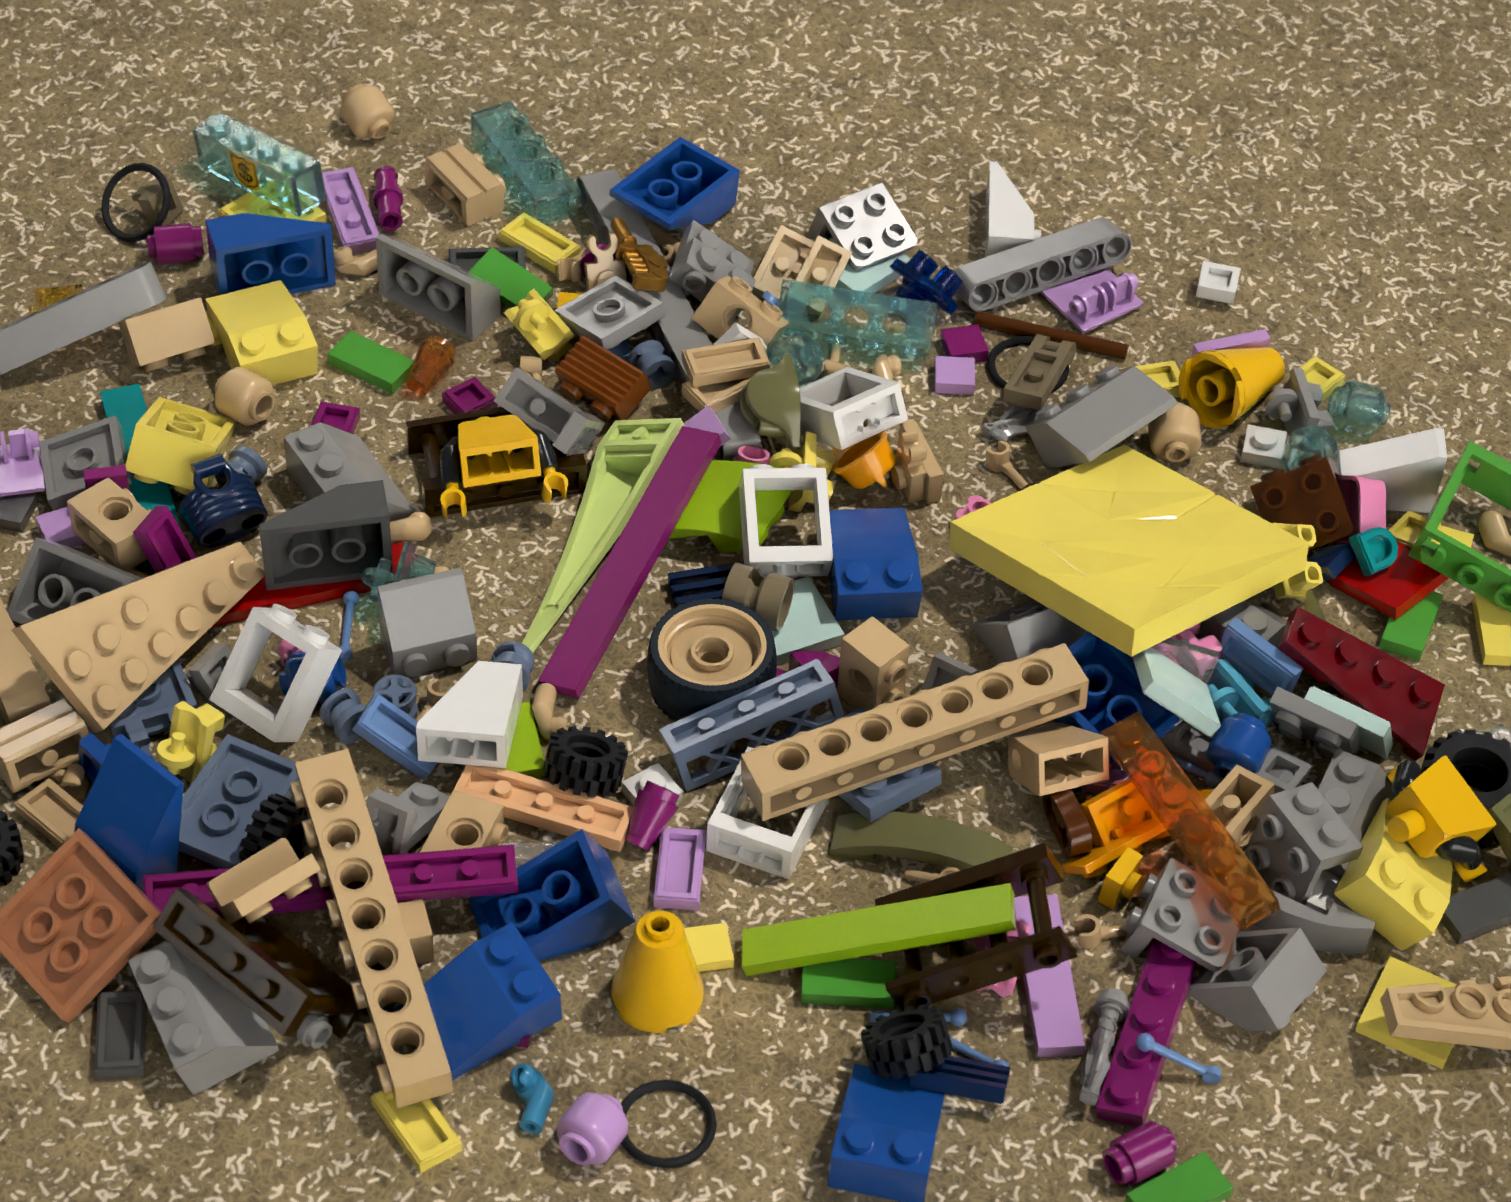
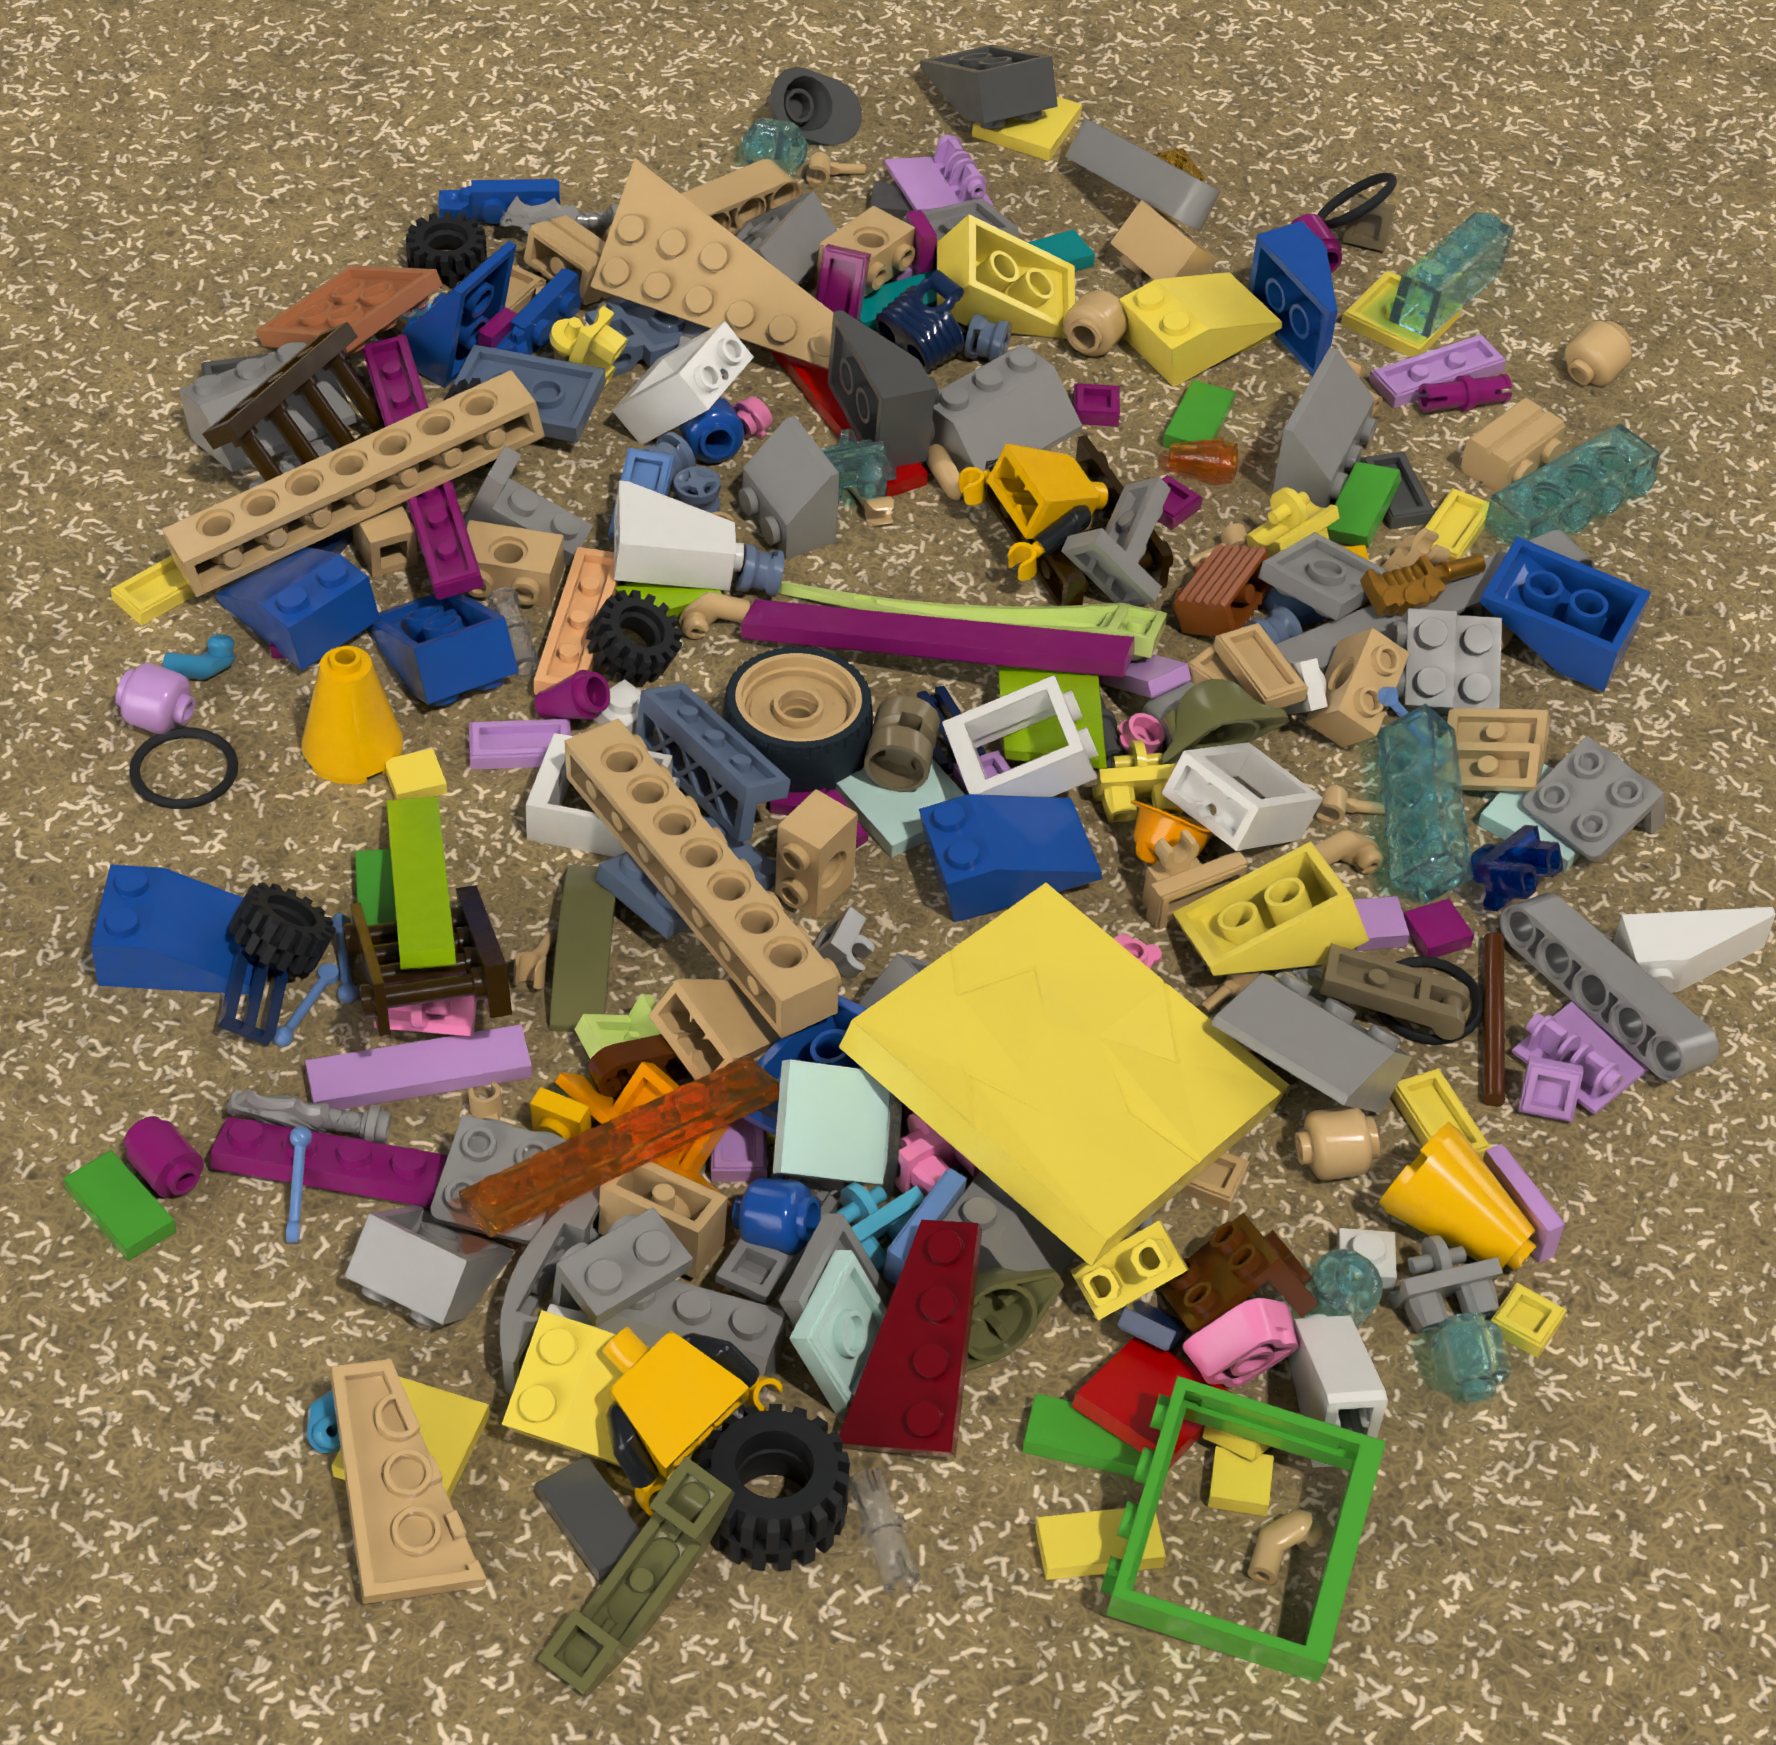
camera: 80 degrees right, 0 degrees up
(260, 878) = (383, 388): tan bracket -> none
(805, 354) = (1308, 740): clear light blue head -> none
(965, 417) = (1274, 917): none -> light yellow slope
(1033, 824) = (607, 1029): none -> yellowish green bracket
(1129, 316) = (1550, 1088): none -> lavender tile
(1218, 282) = (1669, 1190): white plate -> none
(1374, 549) = (1171, 1355): teal tile -> none
(1392, 1063) = (322, 1424): none -> dark azure arm

